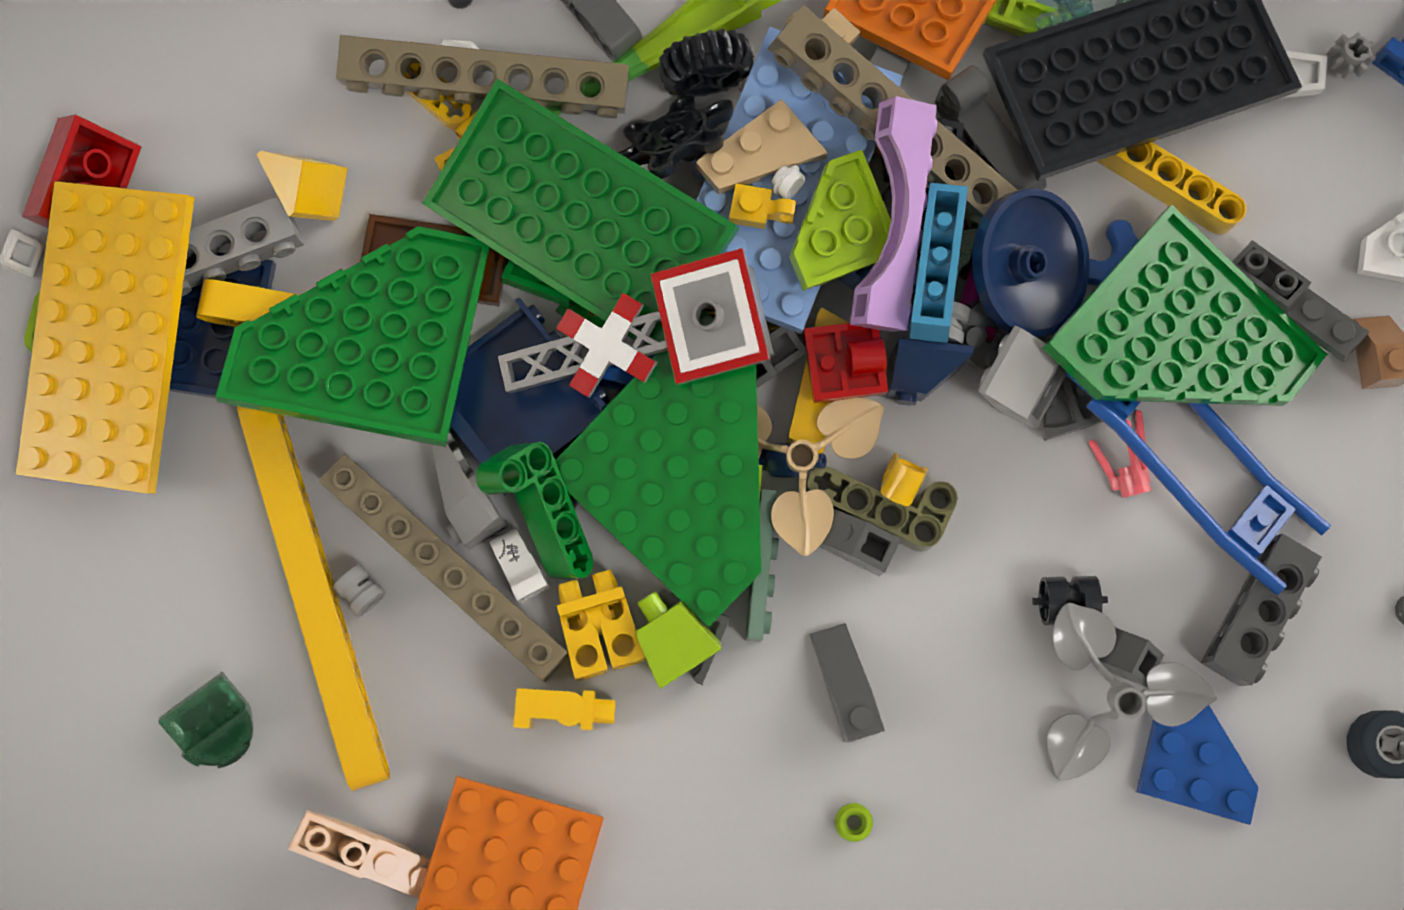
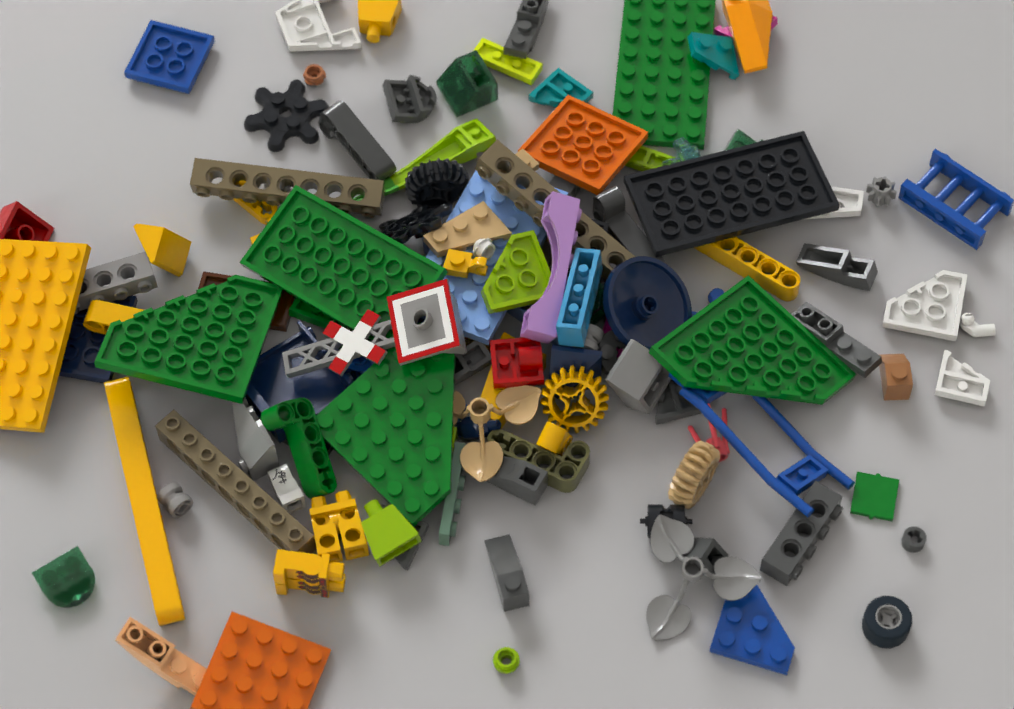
camera: 10 degrees right, 20 degrees down
(929, 405) = (583, 405): none -> yellow gear
(1111, 532) = (694, 474): none -> tan gear
(1292, 178) = (838, 266): none -> dark grey slope
(1356, 542) = (874, 496): none -> green piece

